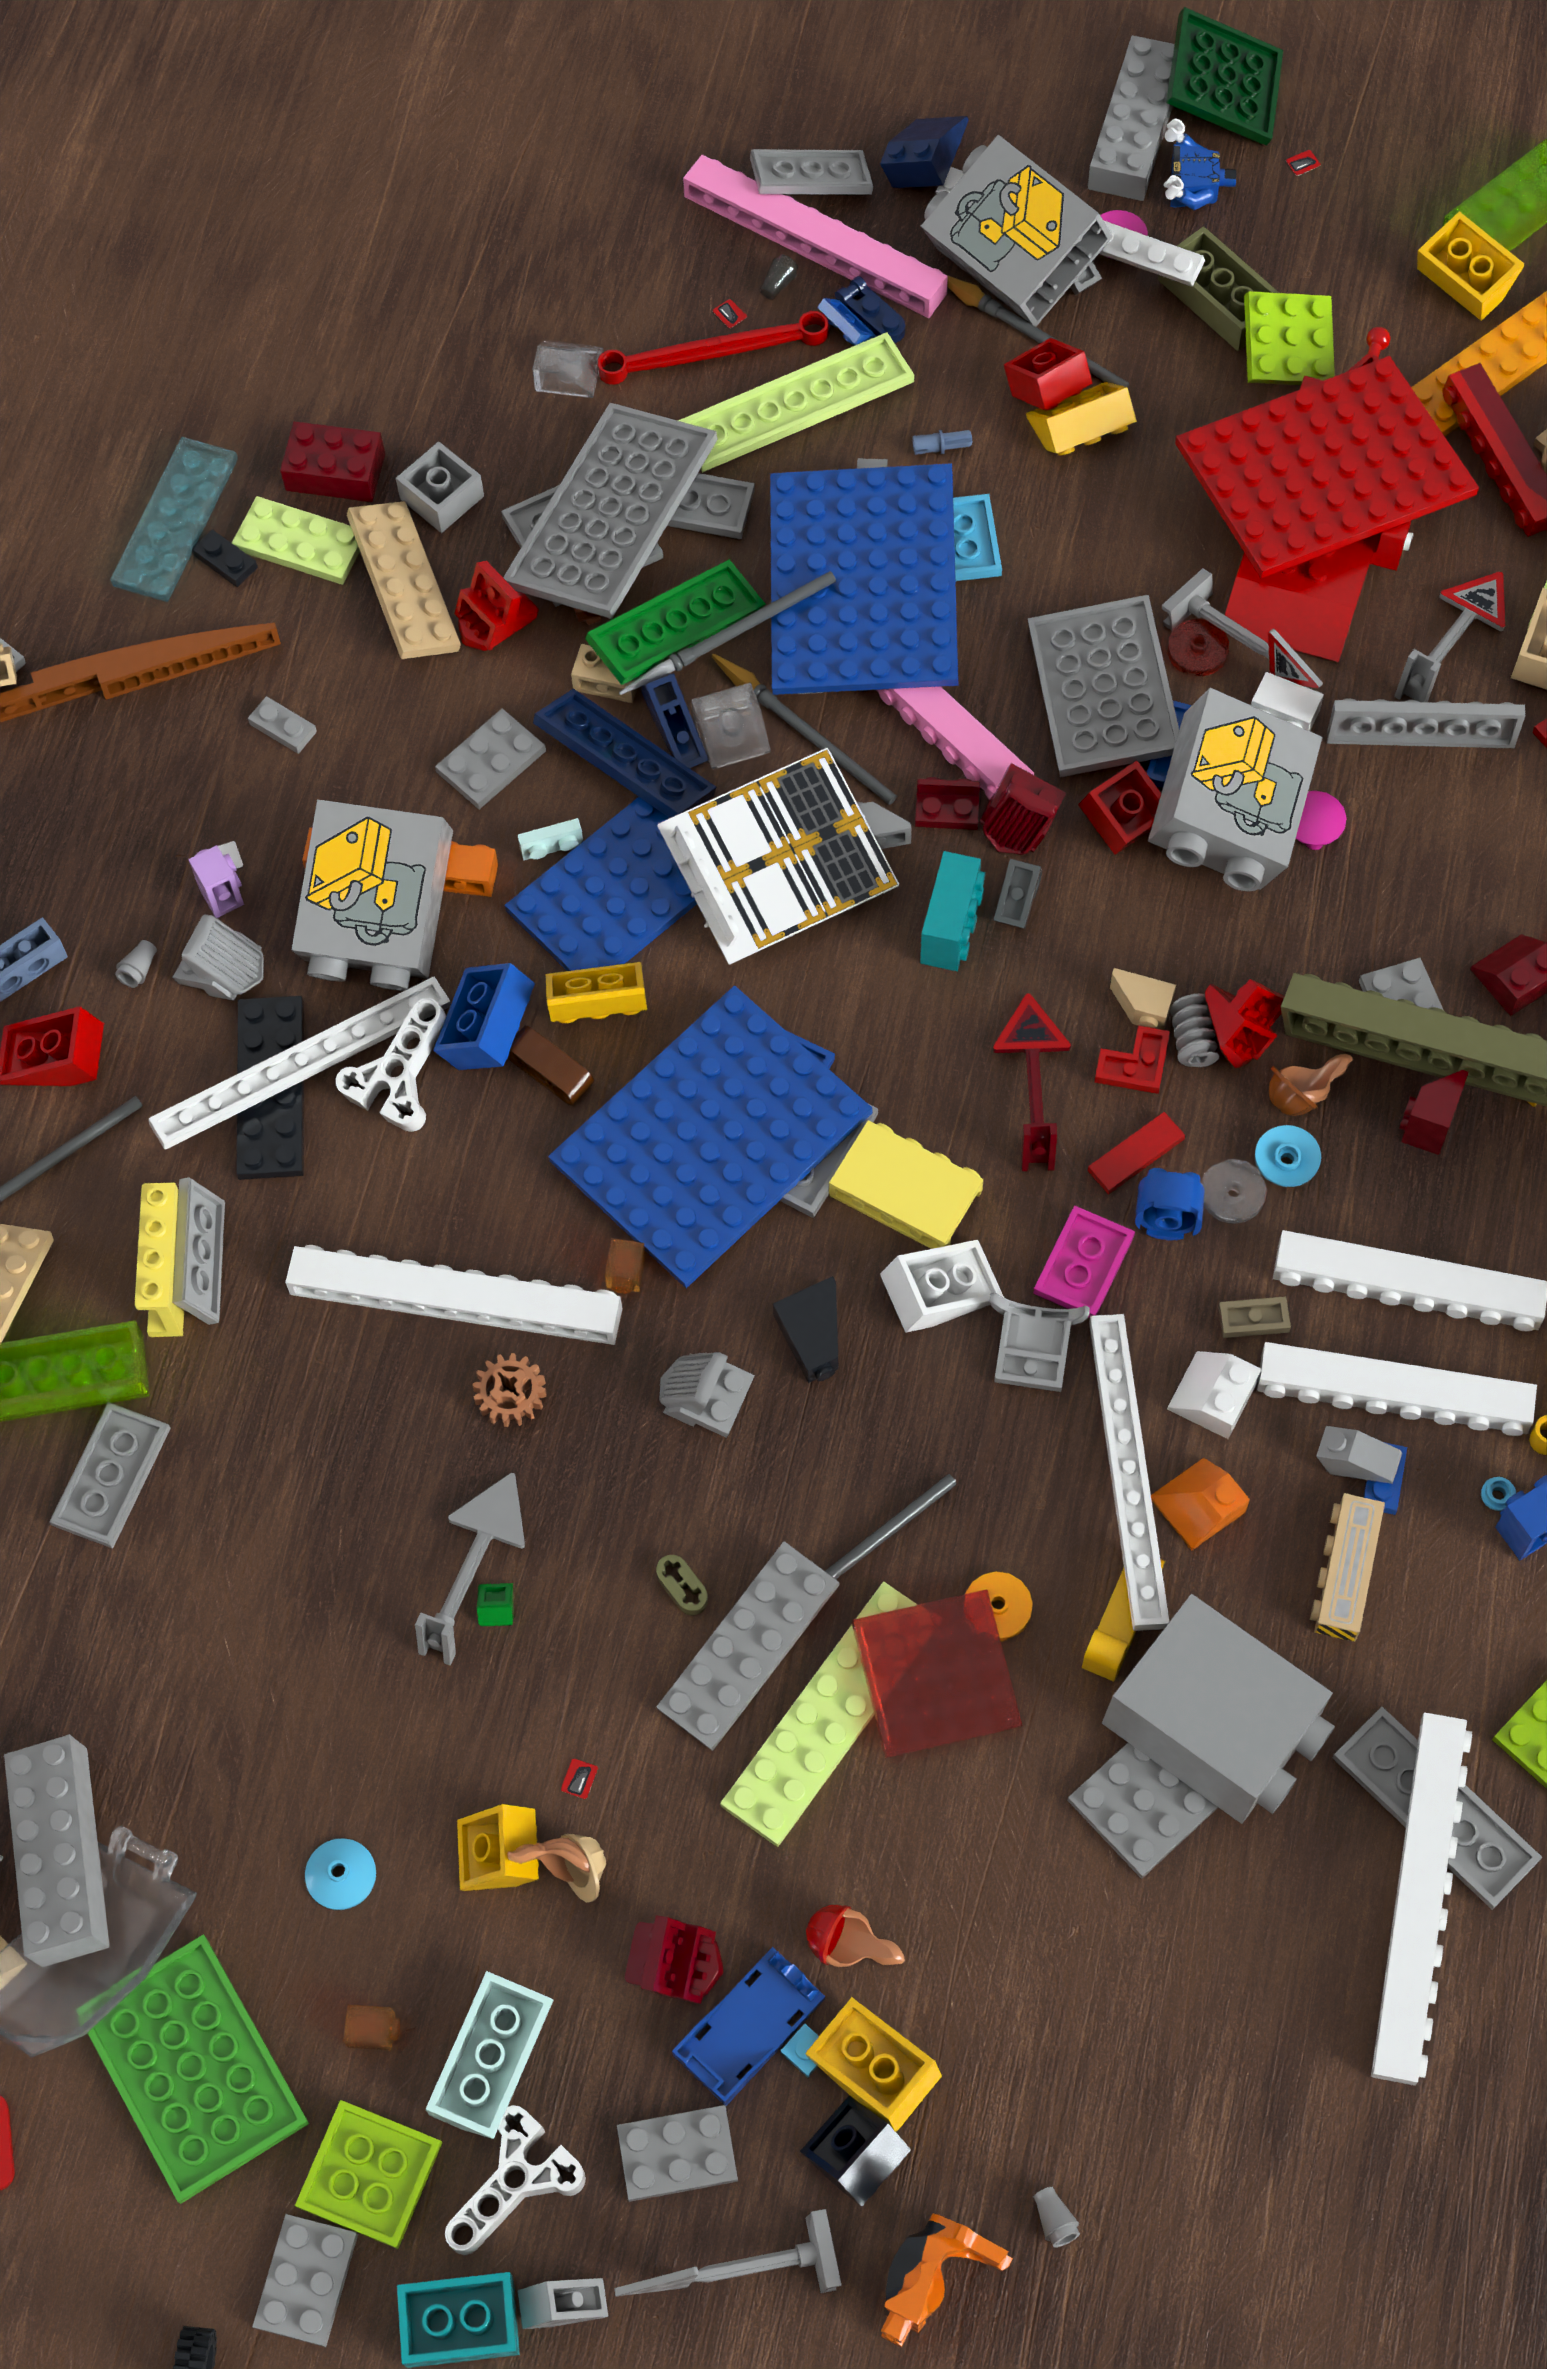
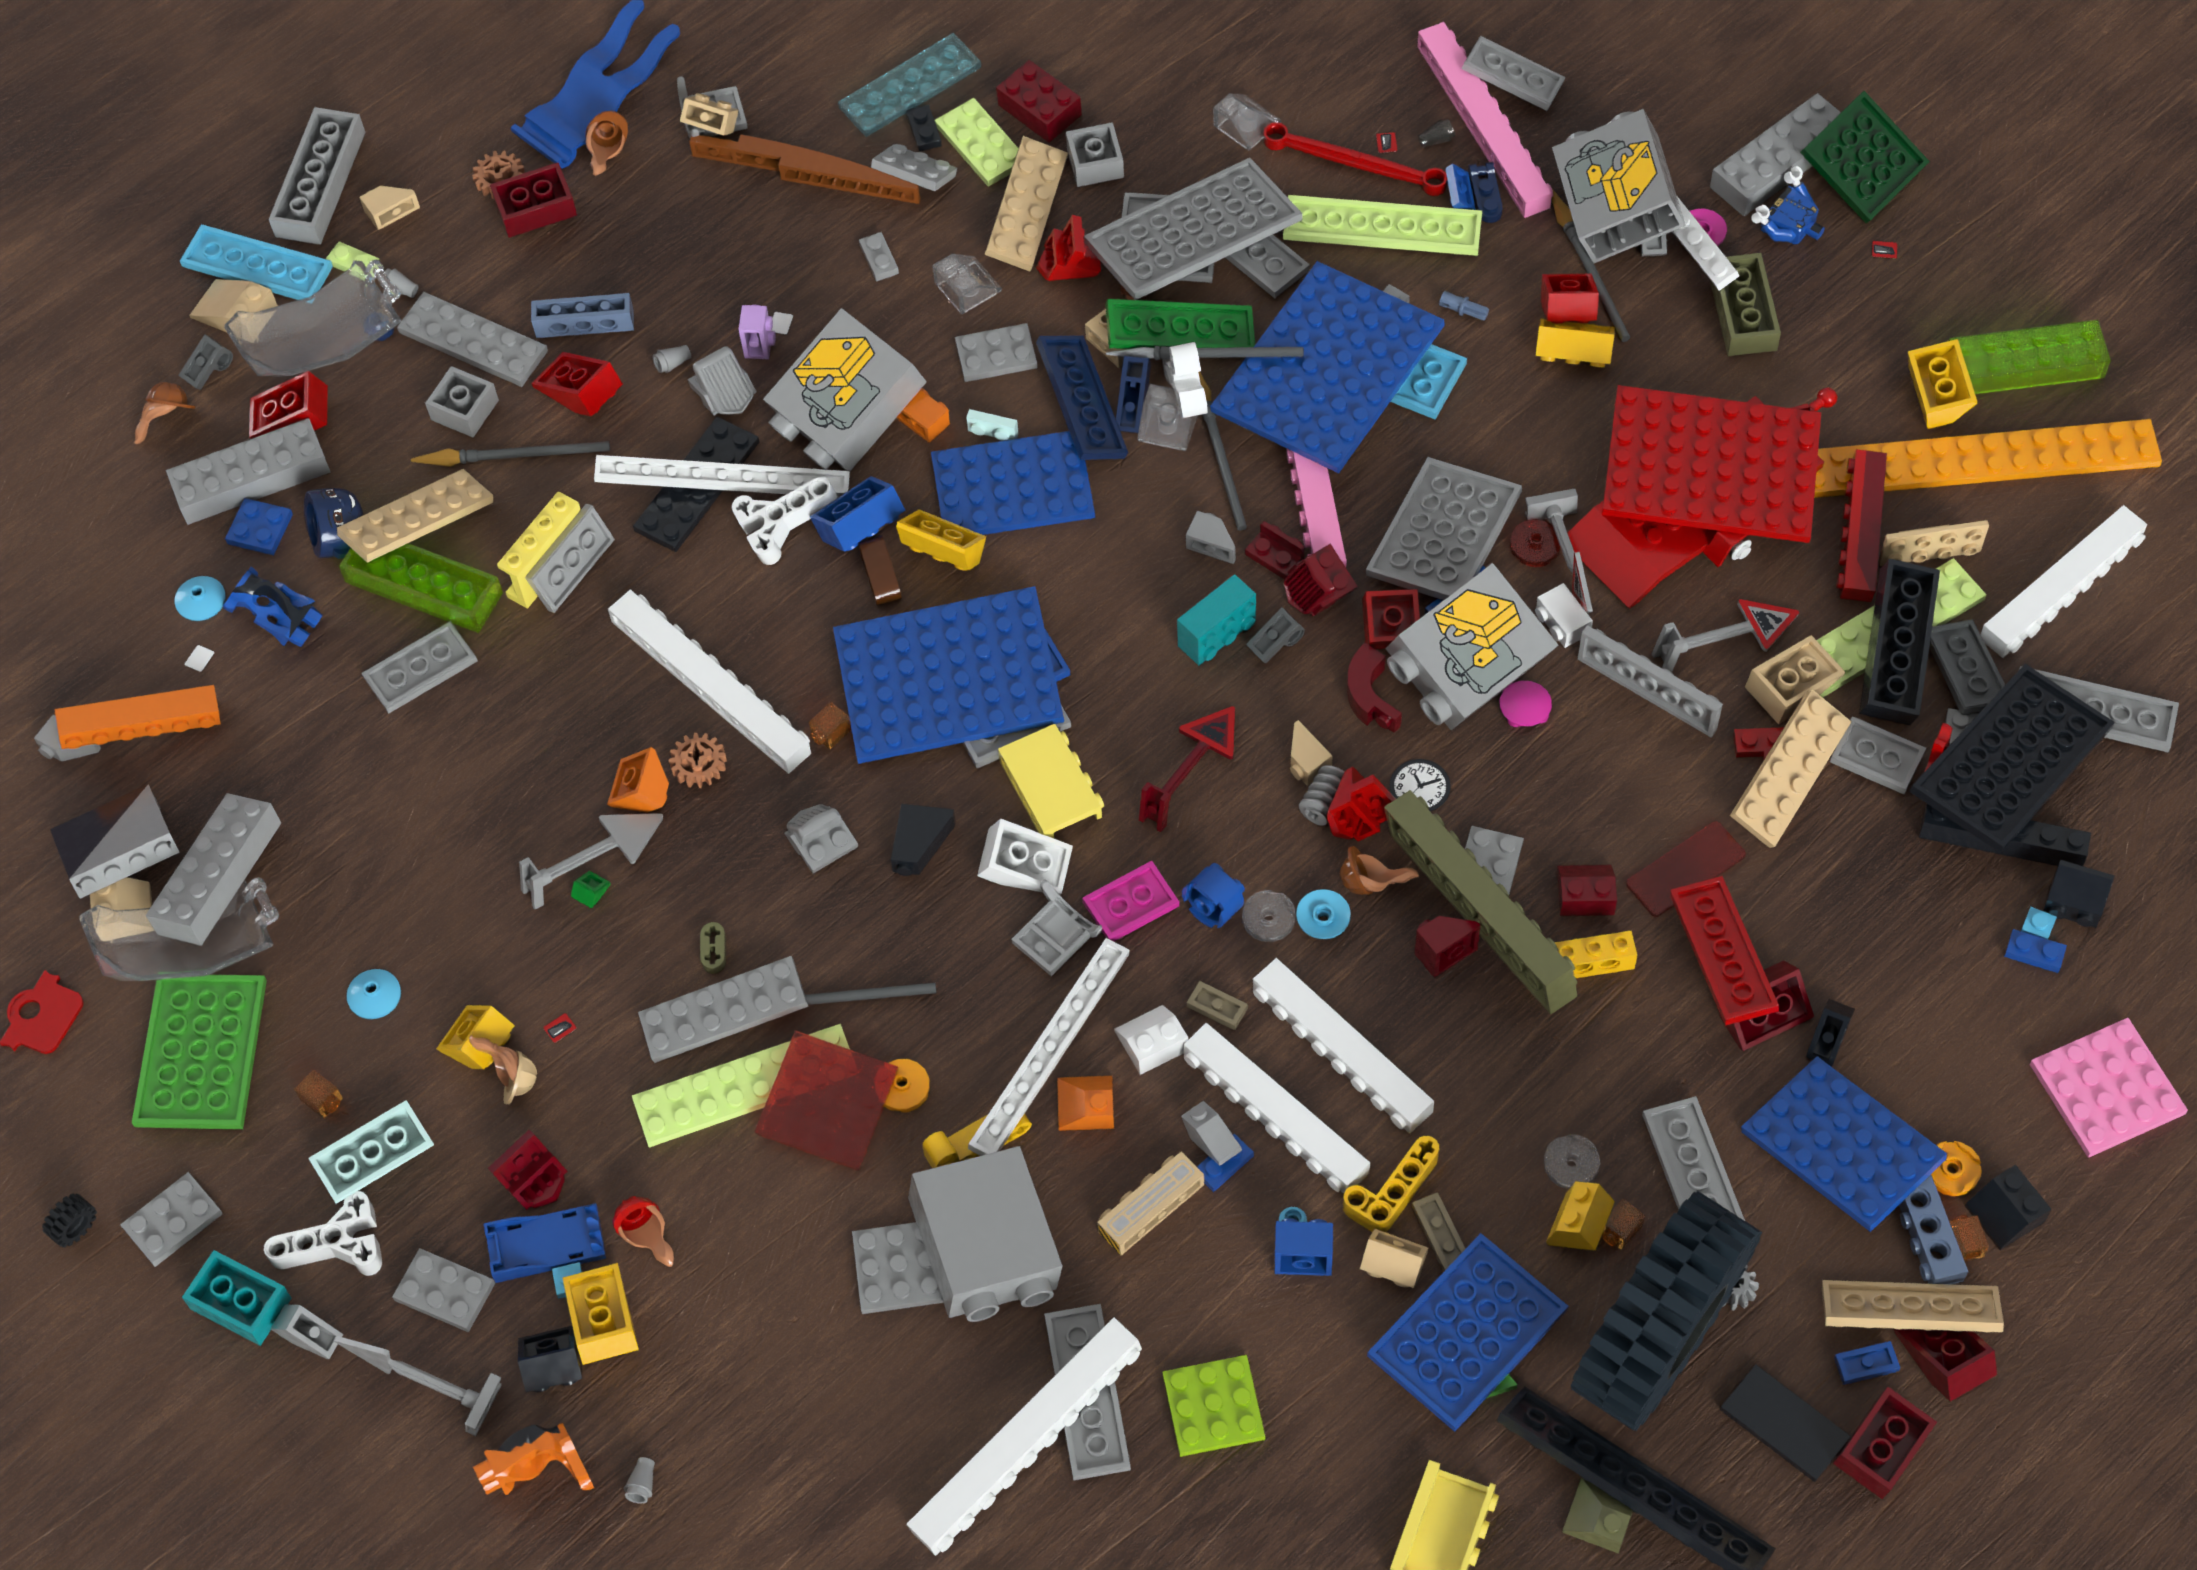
camera: 35 degrees right, 5 degrees down
(251, 605) = (914, 167): none -> light grey plate
(368, 2174) = (253, 1180): lime plate -> none
(399, 701) = (964, 281): none -> clear slope
(464, 1453) = (639, 783): none -> orange slope
(728, 671) = (1183, 376): none -> white beam
(778, 855) = (1127, 517): door -> none
(923, 152) = (1601, 99): dark blue slope -> none
(1136, 1153) = (1224, 852): red tile -> none
(1137, 1070) = (1269, 799): red plate -> none
(1147, 901) = (1362, 672): none -> dark red arch
(1273, 960) = (1424, 780): none -> sticker
(1288, 337) = (1764, 363): lime plate -> none

